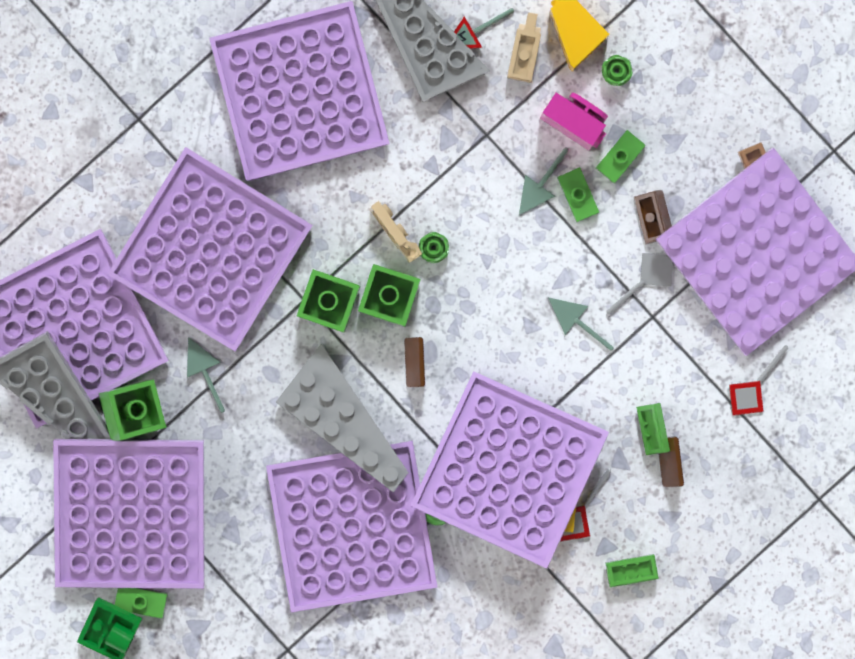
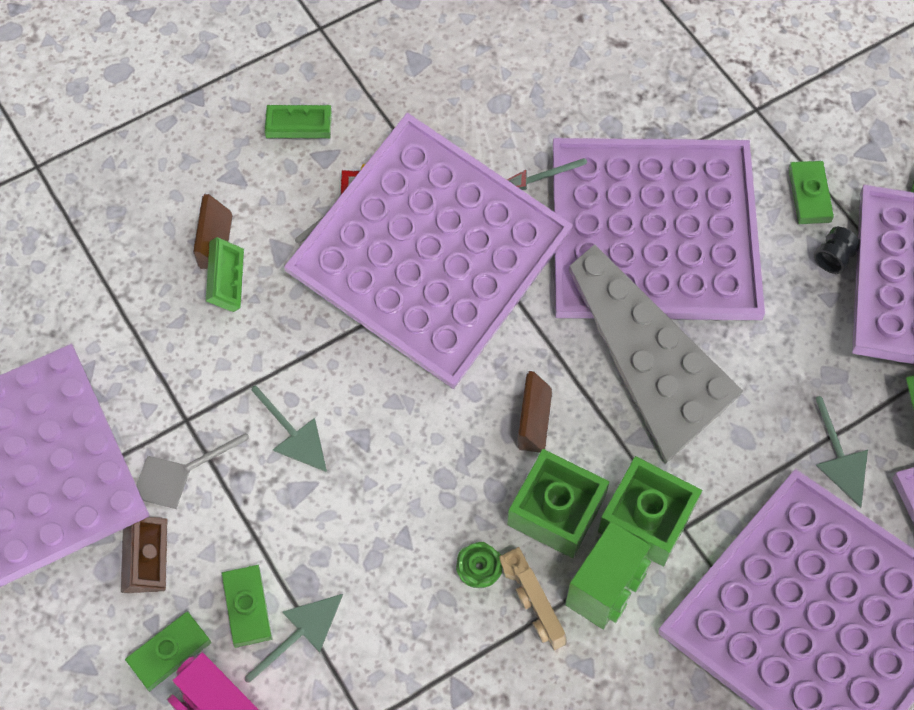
camera: 170 degrees left, 25 degrees down
(218, 529) = (839, 246): none -> black wheel
(241, 579) = (810, 192): none -> bright green plate
(349, 249) = (607, 575): none -> bright green brick
(459, 546) = (521, 180): none -> sand green piece
(747, 396) = (84, 298): piece -> none

